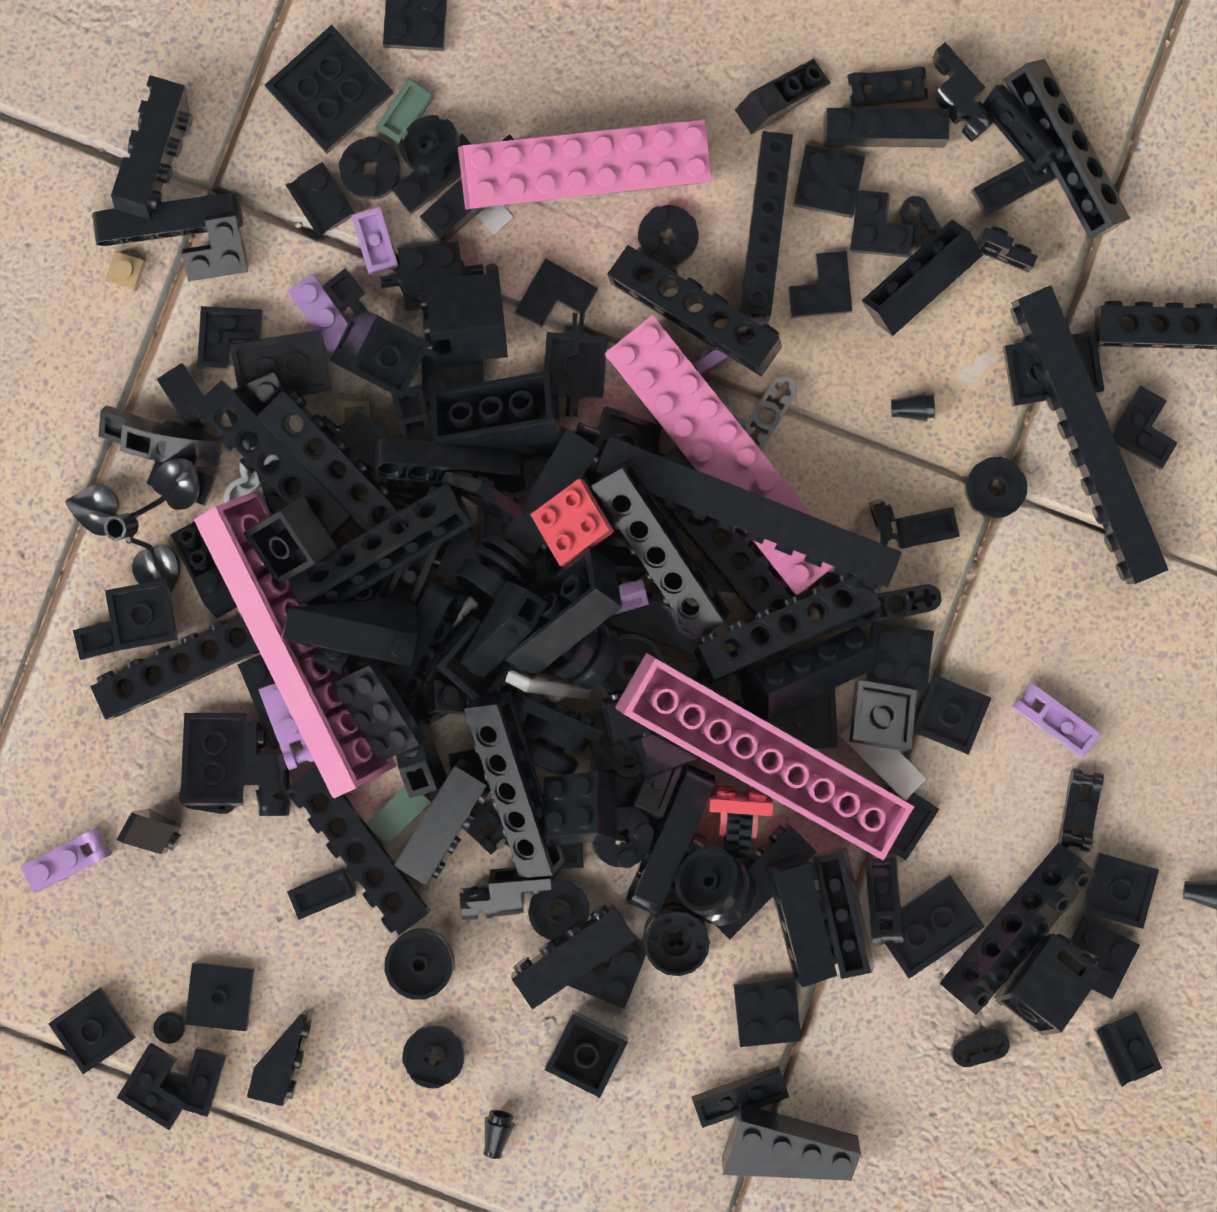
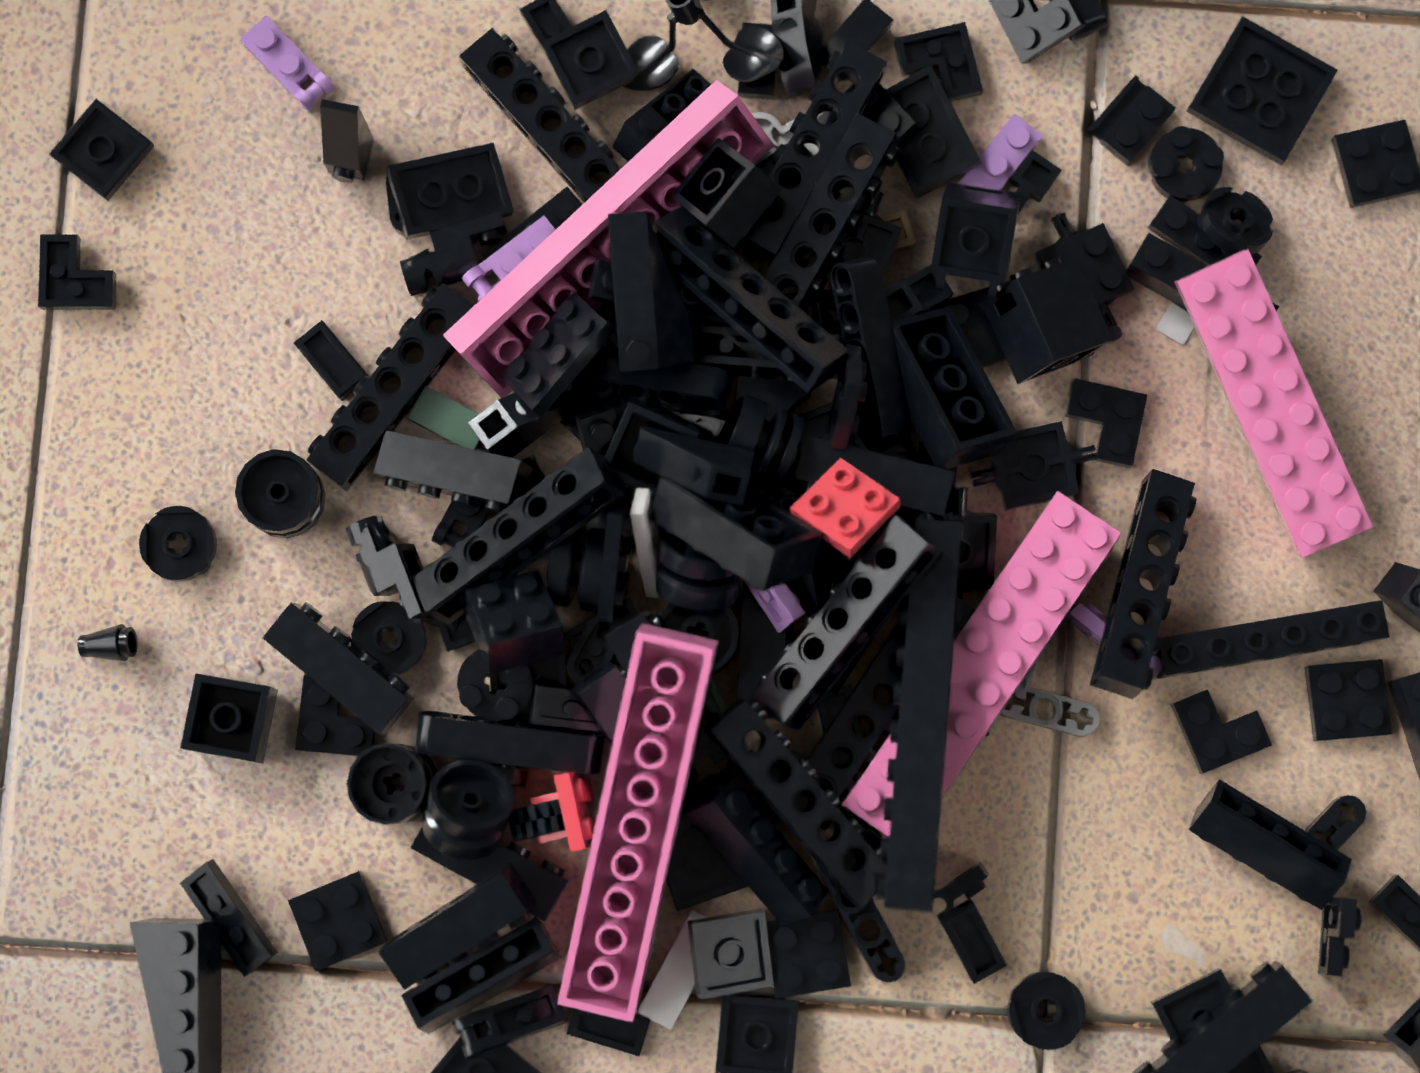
camera: 75 degrees right, 5 degrees down
(145, 1089) = (46, 227): black plate -> none
(169, 1027) = (129, 235): black tile -> none
(219, 996) = (180, 280): black plate -> none
(274, 1072) = (109, 367): black slope -> none
(374, 241) = (1103, 194): lavender plate -> none
(404, 110) = (1270, 184): sand green tile -> none
(683, 227) = (1237, 544): black plate -> none
(872, 232) = (1303, 771): black plate -> none
(915, 407) = (1112, 883): black cone -> none

